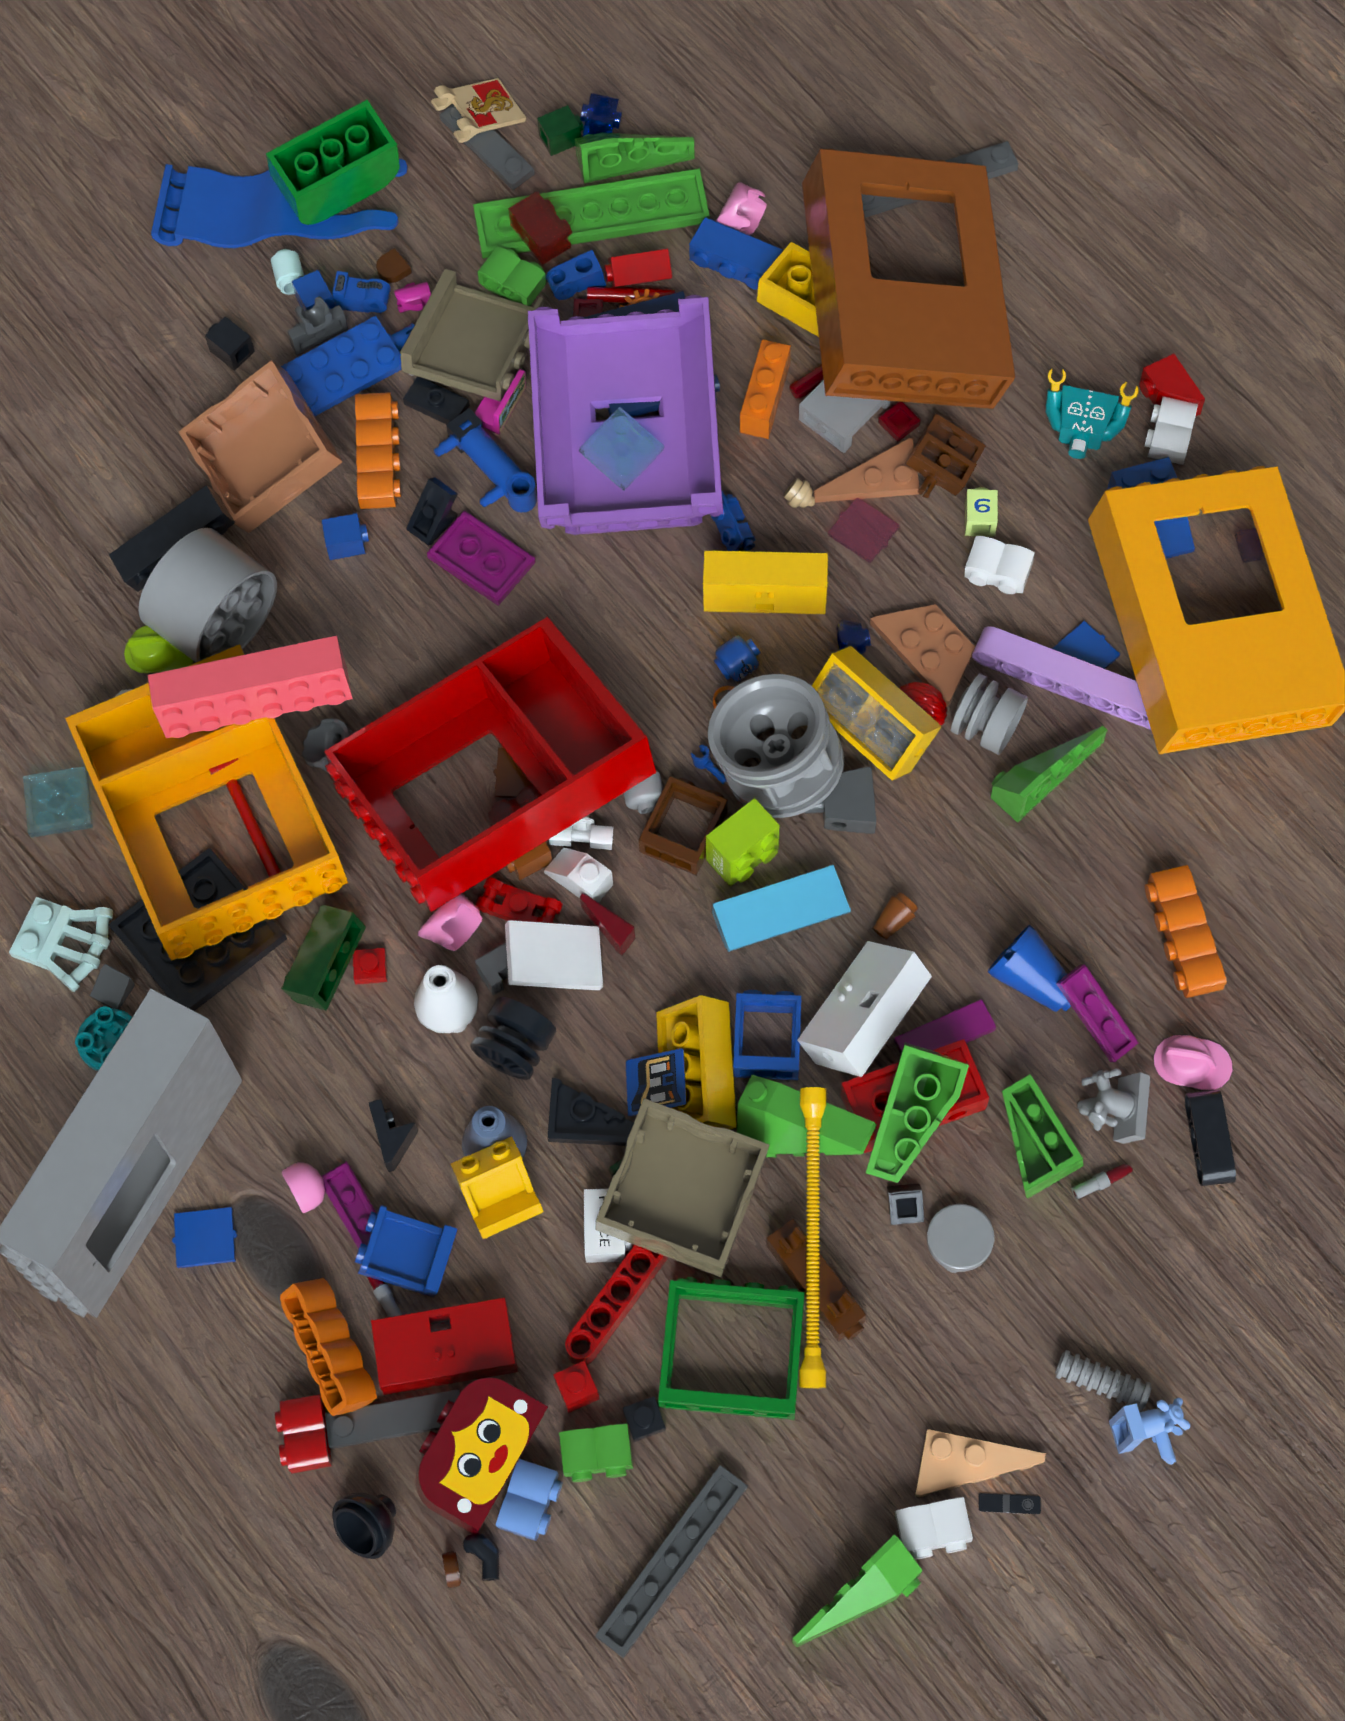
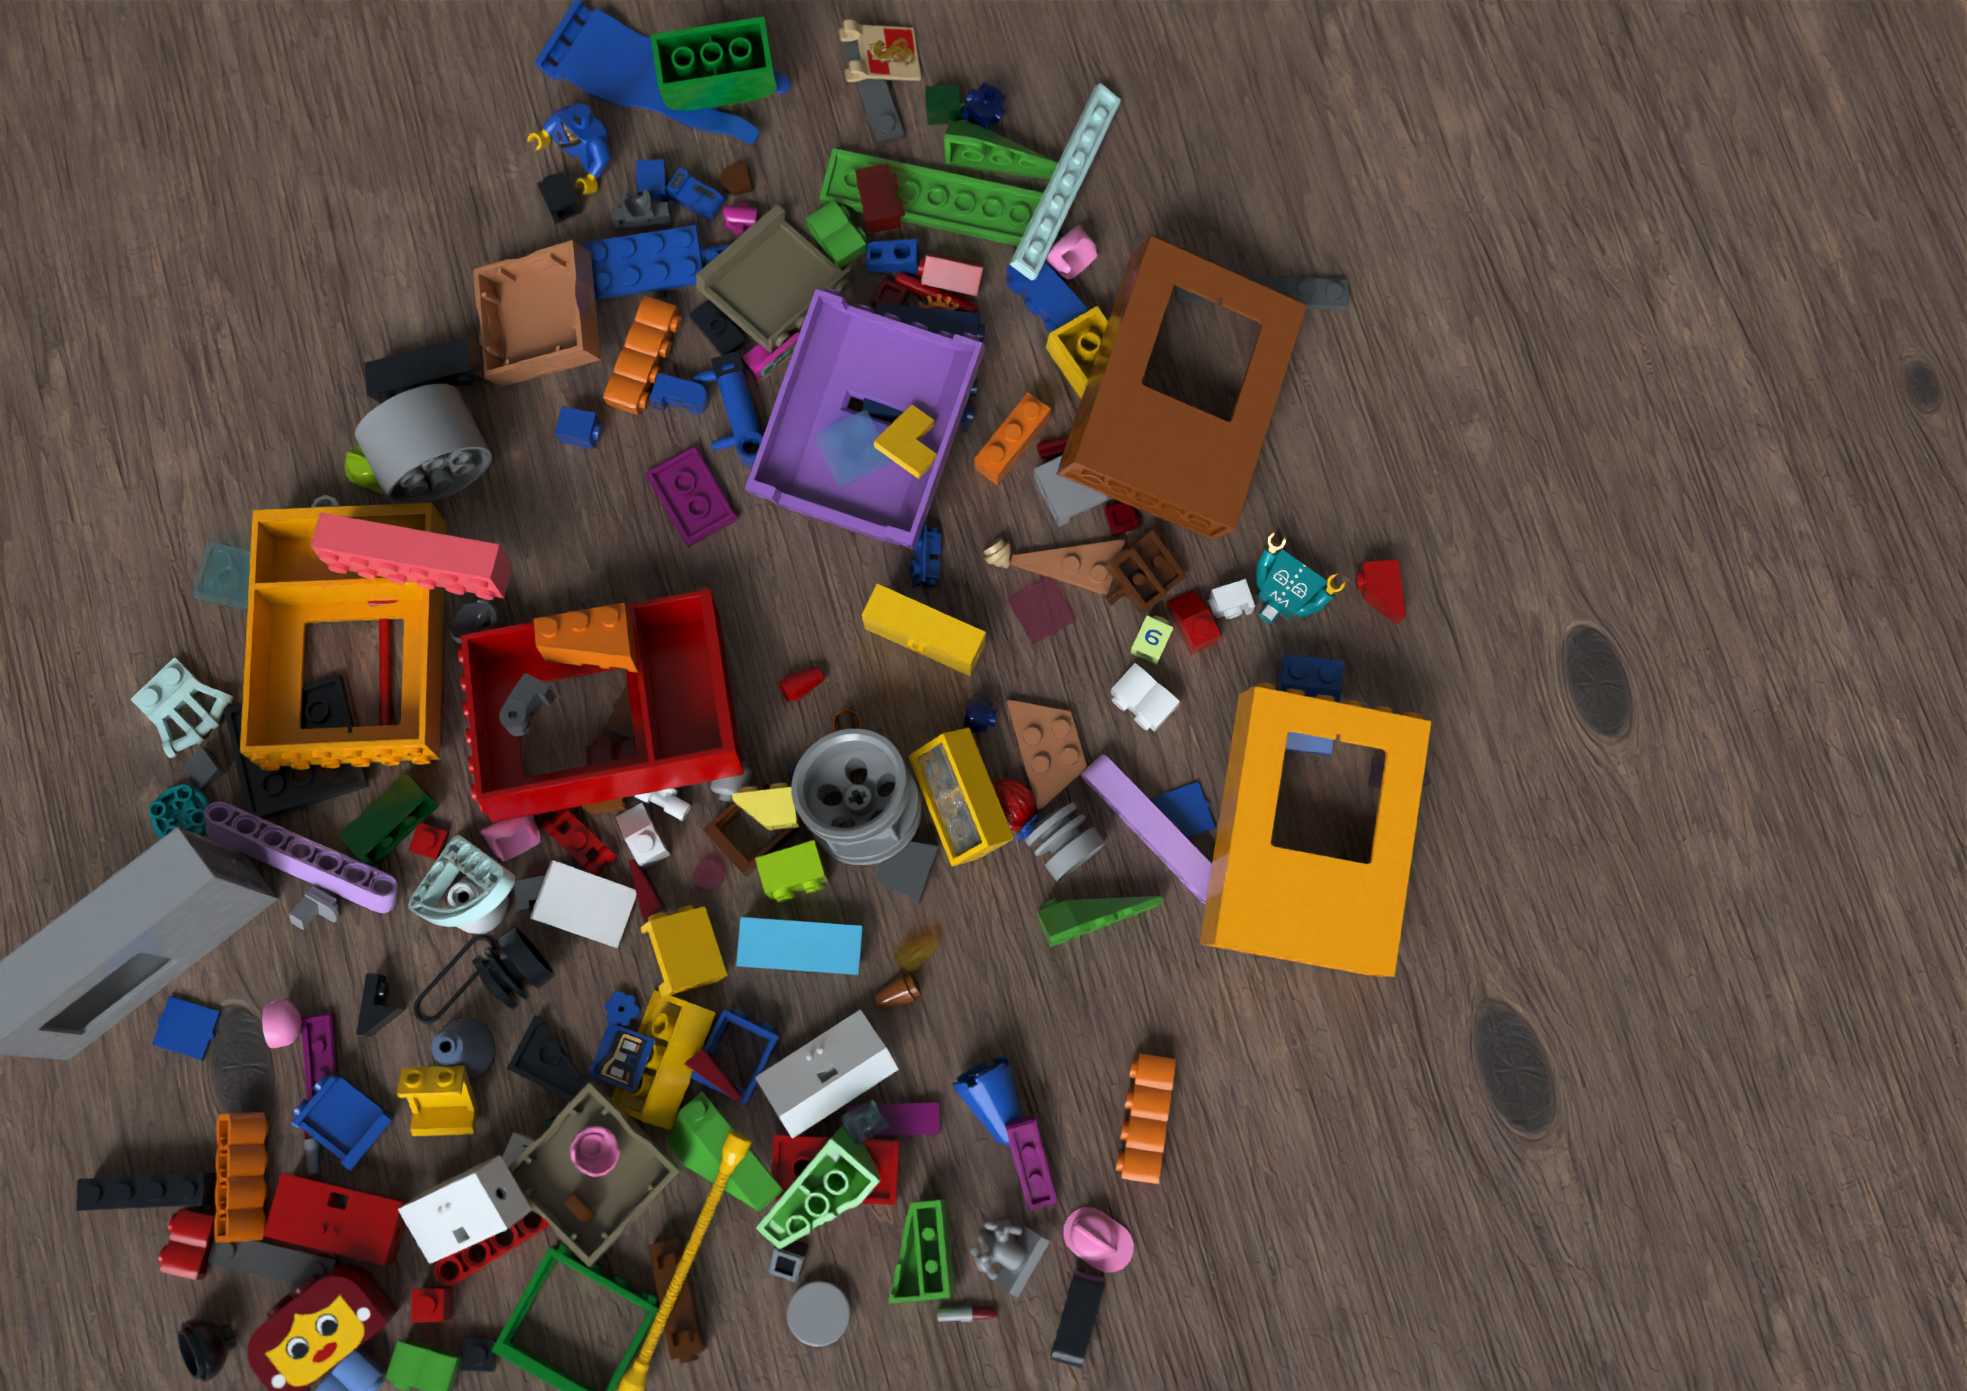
camera: 20 degrees right, 10 degrees up
(228, 281) = (581, 138): none -> blue torso
(237, 1402) = (146, 1191): none -> black brick
(284, 1024) = (290, 846): none -> lavender beam
(286, 268) = (639, 145): light aqua brick -> none
(288, 1063) = (314, 903): none -> light grey piece
(421, 467) = (678, 393): none -> blue leg
(421, 775) = (524, 703): none -> dark grey leg
(433, 511) = (665, 437): black slope -> none
(439, 1083) = (445, 970): none -> black piece
(455, 695) = (588, 637): none -> orange wedge
(462, 944) = (479, 867): none -> light aqua beam
(574, 1270) = (465, 1209): none -> white brick
(636, 1033) = (613, 1007): none -> blue plant
(660, 886) = (708, 875): none -> clear pink tile
(666, 680) = (798, 684): none -> red cone
(669, 422) = (902, 442): none -> yellow tile
(674, 955) = (685, 950): none -> yellow panel
(676, 1162) = (594, 1150): none -> bright pink hair
(686, 1222) = (580, 1207): none -> reddish brown tile
(696, 790) = (769, 807): none -> light yellow slope
(708, 151) = (1065, 182): none -> light aqua tile
(737, 658) = (869, 690): blue head -> none
(754, 1048) = (709, 1068): none -> dark red slope
(894, 874) = (916, 953): none -> clear yellow cone
(923, 1034) = (864, 1122): none -> clear light blue plate
(947, 720) = (1028, 828): none -> blue plant
(1015, 481) = (1194, 621): none -> red slope
(1038, 450) = (1231, 600): none -> white brick
(1172, 429) = (1363, 631): white brick -> none

